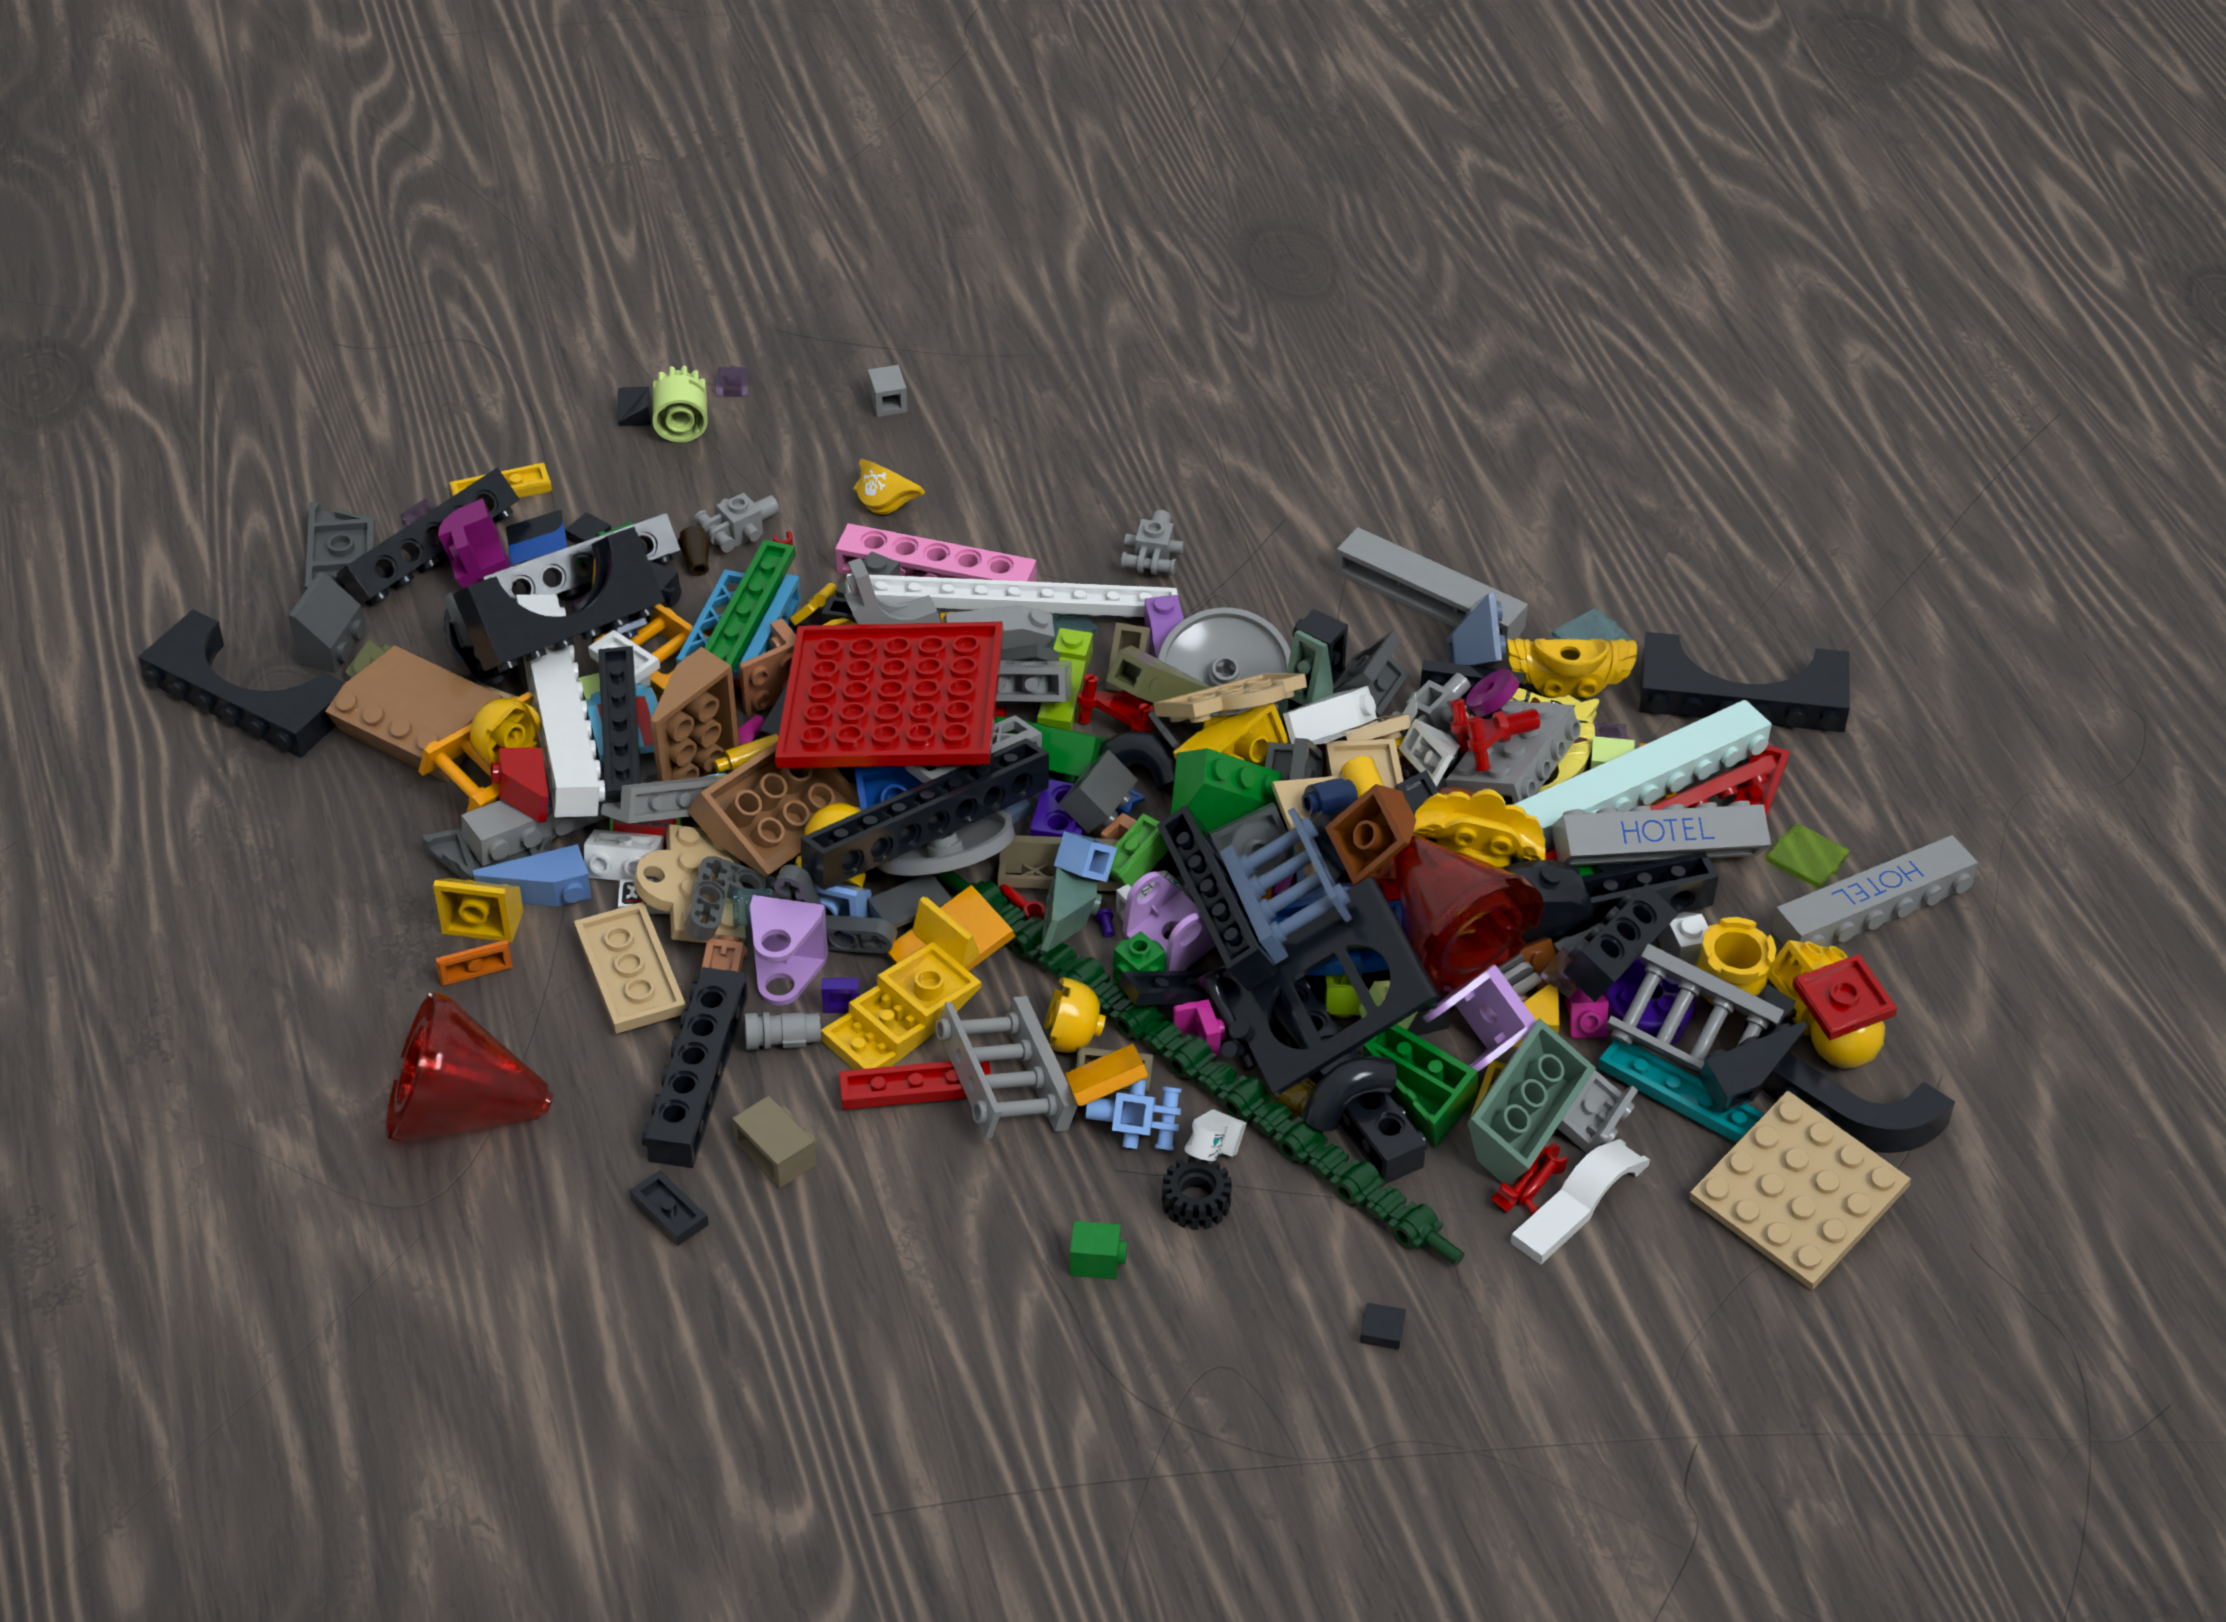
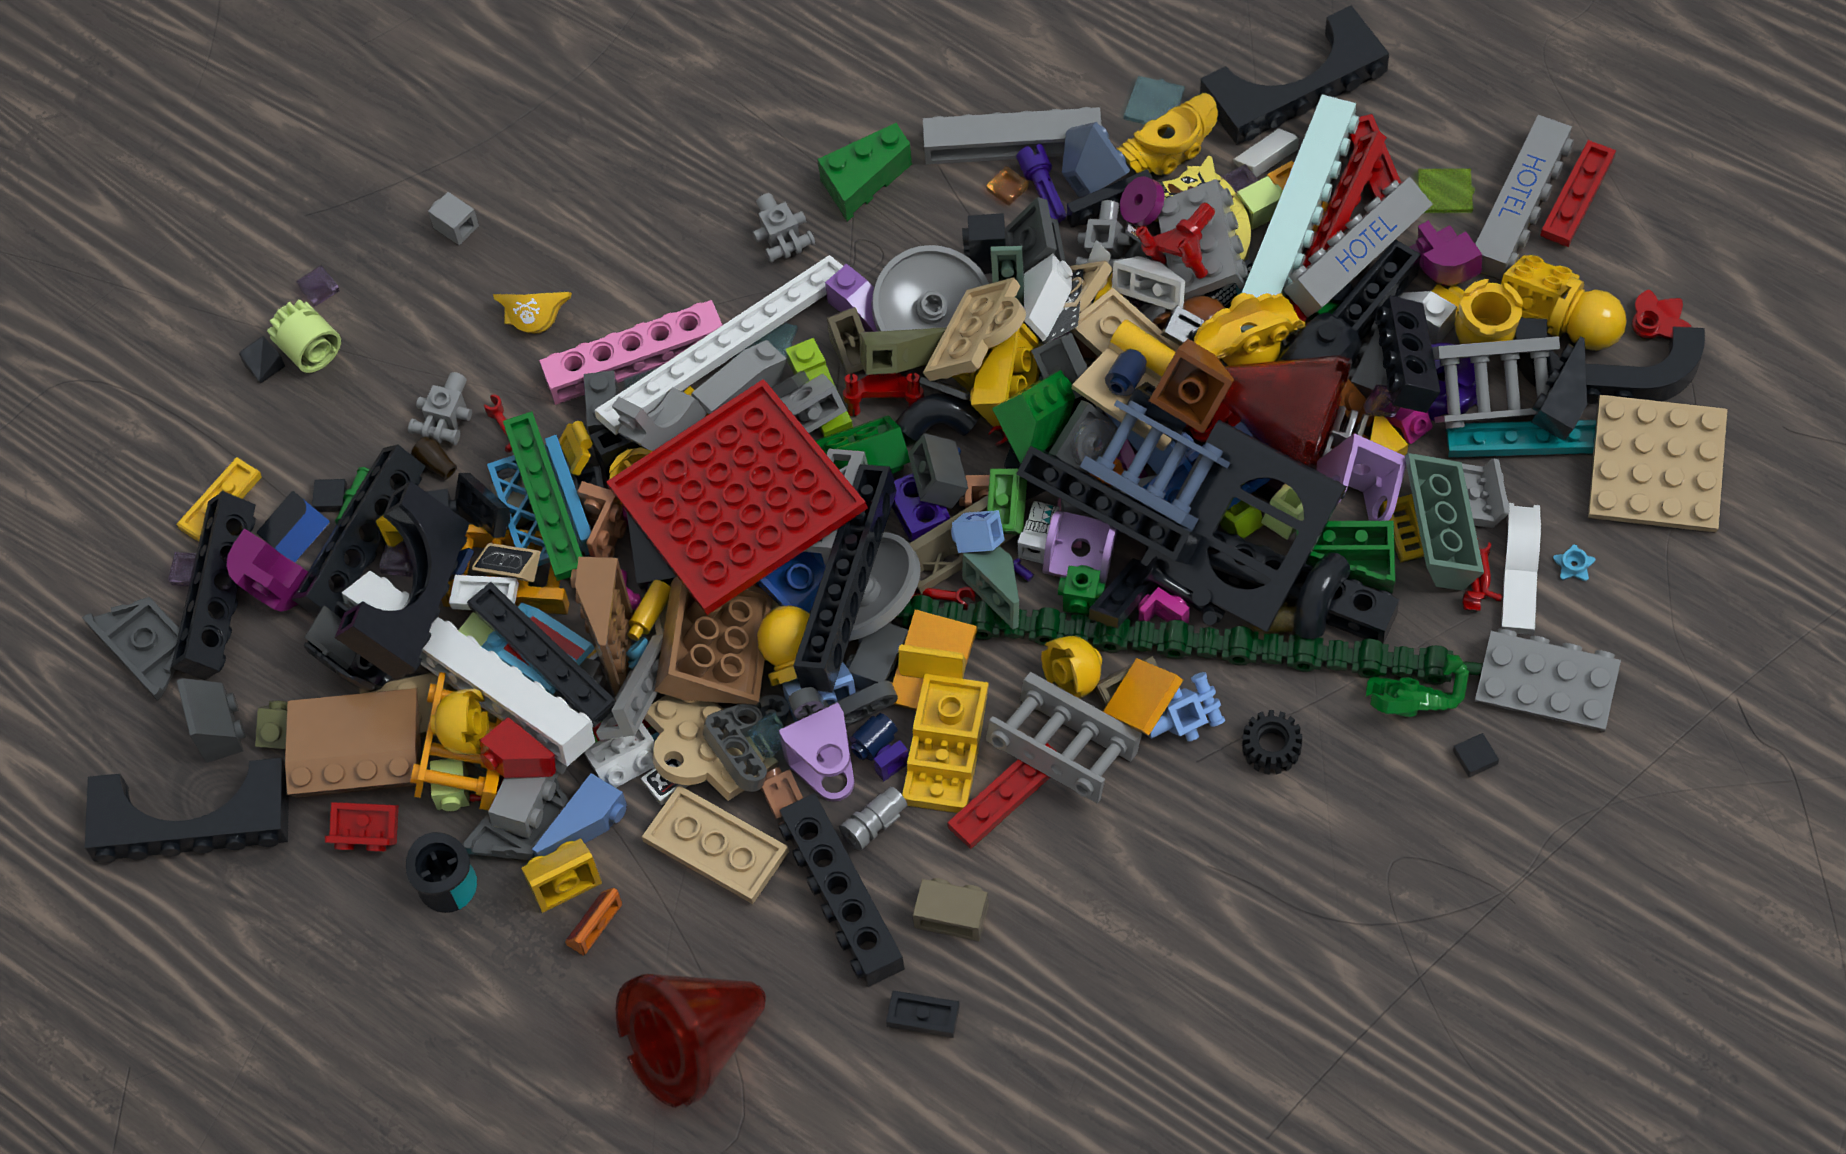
camera: 30 degrees left, 15 degrees up
(366, 776) = (363, 824): none -> red bracket
(386, 846) = (441, 872): none -> black hat
(450, 796) = (448, 797): none -> yellowish green brick
(665, 646) = (508, 562): none -> slope
(693, 599) = (482, 505): none -> black plate
(844, 963) = (872, 737): none -> dark blue brick
(1096, 1250) = (1246, 834): green brick -> none
(1214, 1135) = (1252, 692): white leg -> none
(1273, 539) = (864, 168): none -> green wedge
(1359, 1233) = (1408, 697): none -> green animal
(1390, 621) = (1007, 186): none -> clear orange tile
(1427, 625) = (1037, 169): none -> dark purple piece
(1513, 1304) = (1548, 679): none -> light grey bracket
(1641, 1220) = (1575, 555): none -> medium azure plate
(1650, 729) = (1268, 152): none -> white slope
(1744, 893) = (1446, 256): none -> magenta brick
(1844, 997) = (1589, 299): red tile -> none
(1921, 1066) = (1659, 314): none -> red plate
(1938, 926) = (1578, 193): none -> red plate

